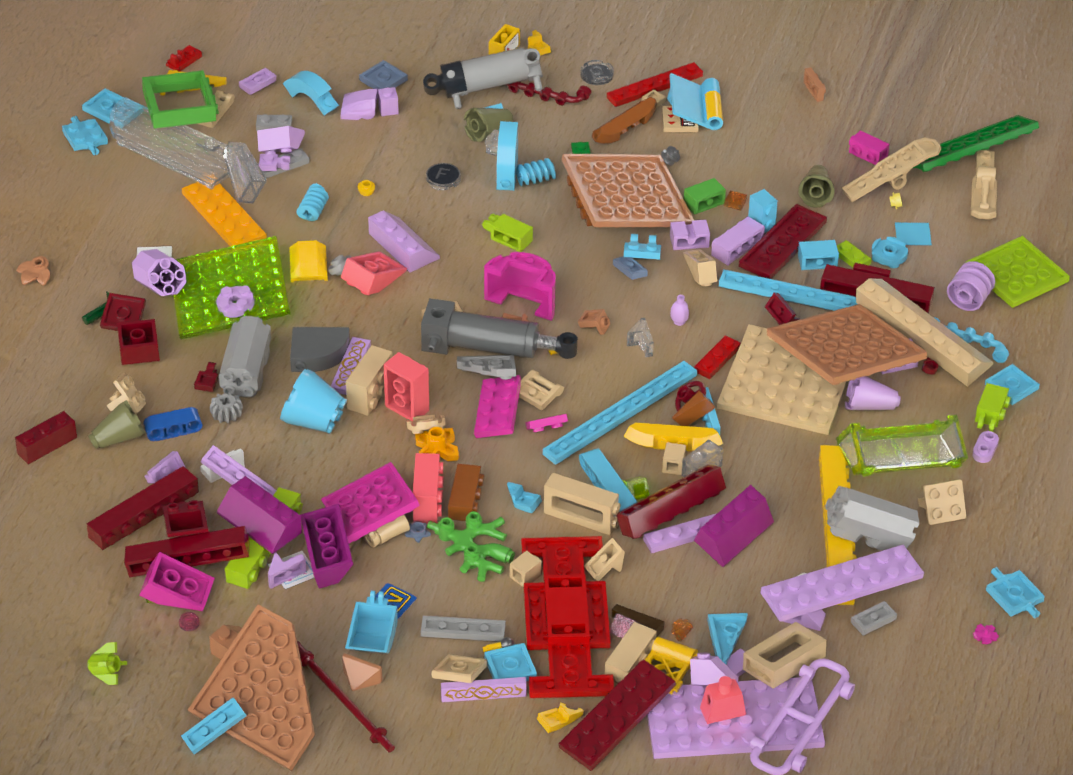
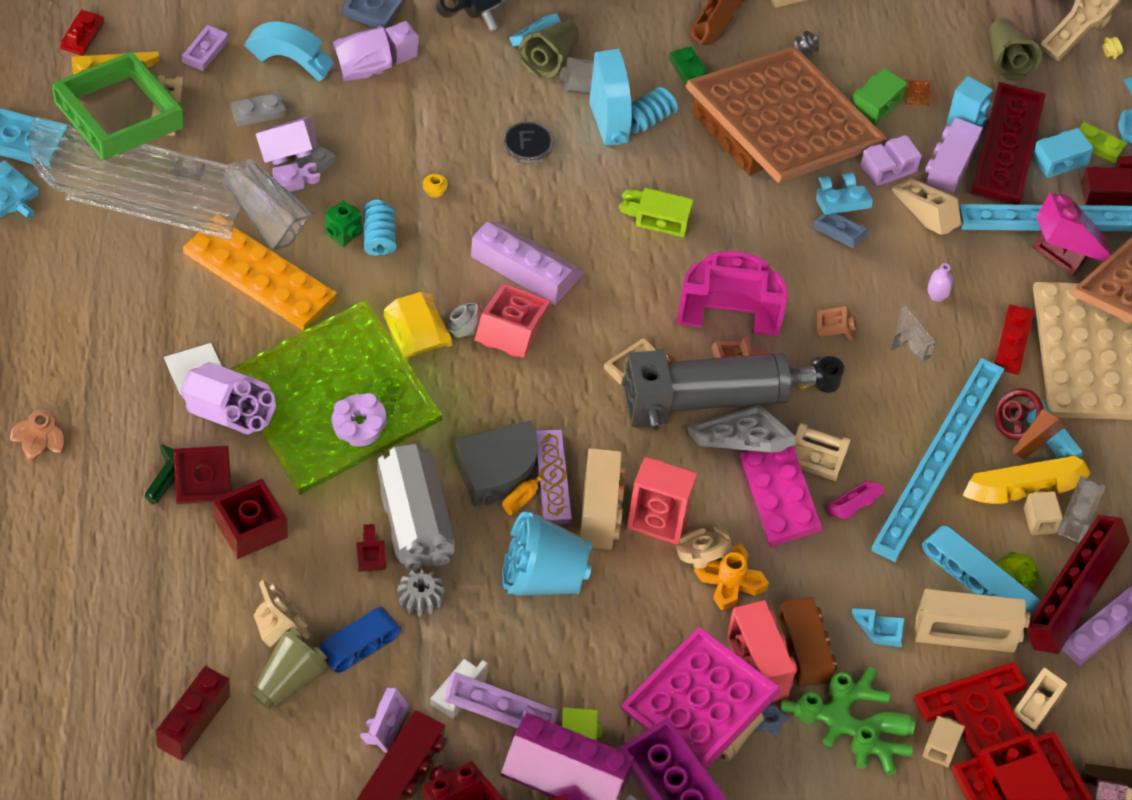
camera: 25 degrees left, 10 degrees up
(290, 195) = (343, 223): none -> green brick
(325, 369) = (521, 496): none -> light orange piece
(792, 296) = (1071, 228): none -> dark pink slope

